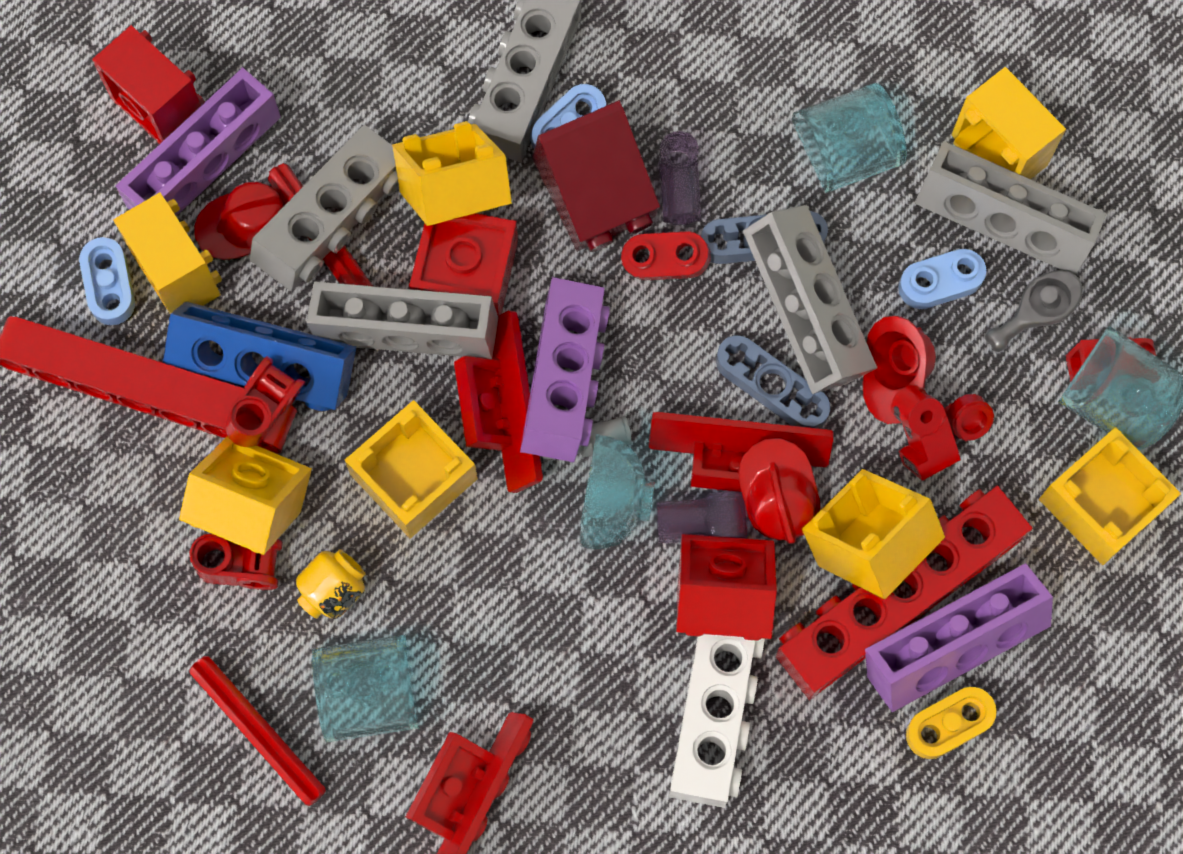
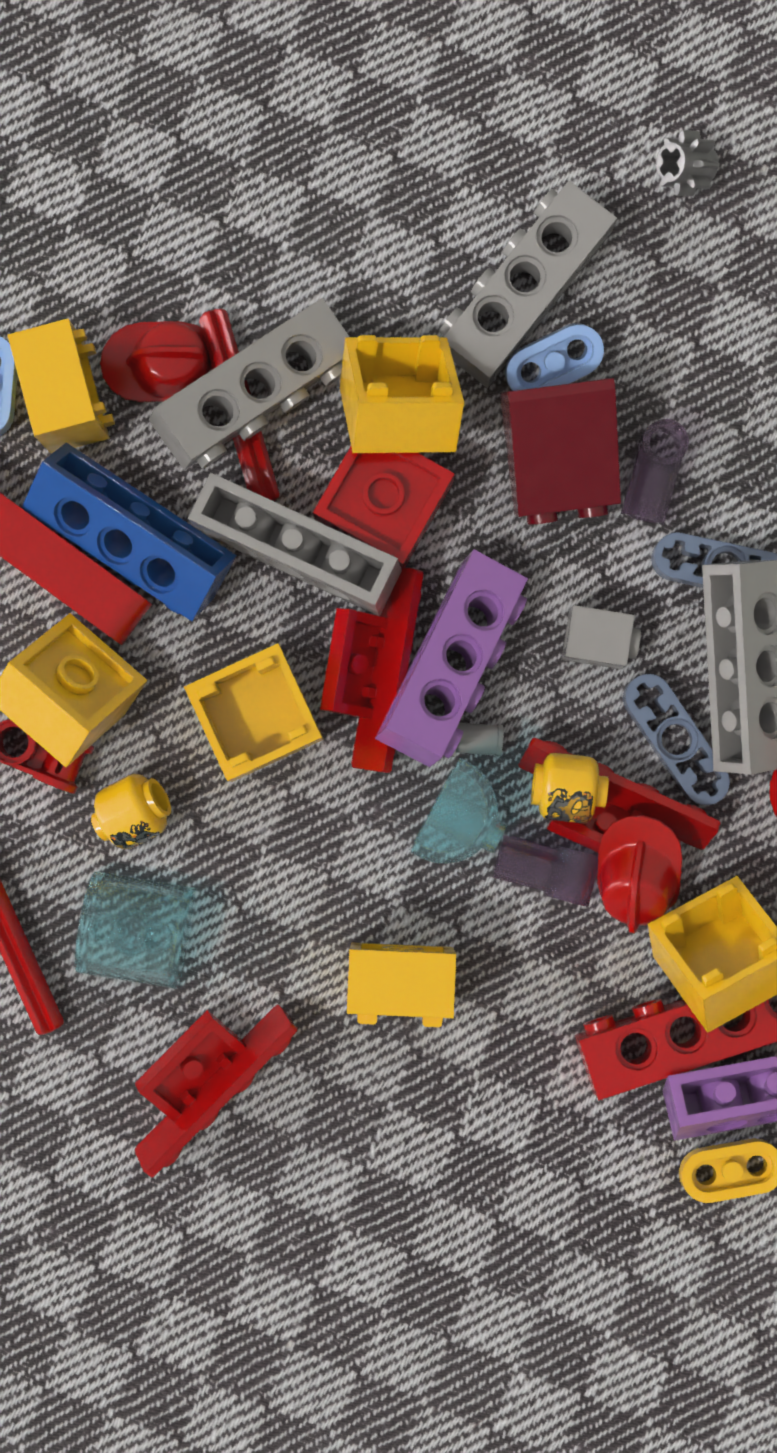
camera: 20 degrees right, 15 degrees up
(147, 83) = (97, 173): red container -> none
(203, 144) = (134, 264): medium lavender brick -> none
(267, 398) = (116, 593): red piece -> none
(610, 645) = (401, 982): none -> yellow container
(664, 256) = (608, 556): red plate -> none
(680, 320) = (600, 637): none -> light grey brick
(691, 776) = (472, 1152): white brick -> none
(696, 439) = (568, 787): none -> yellow head
(726, 587) = (545, 959): red container -> none

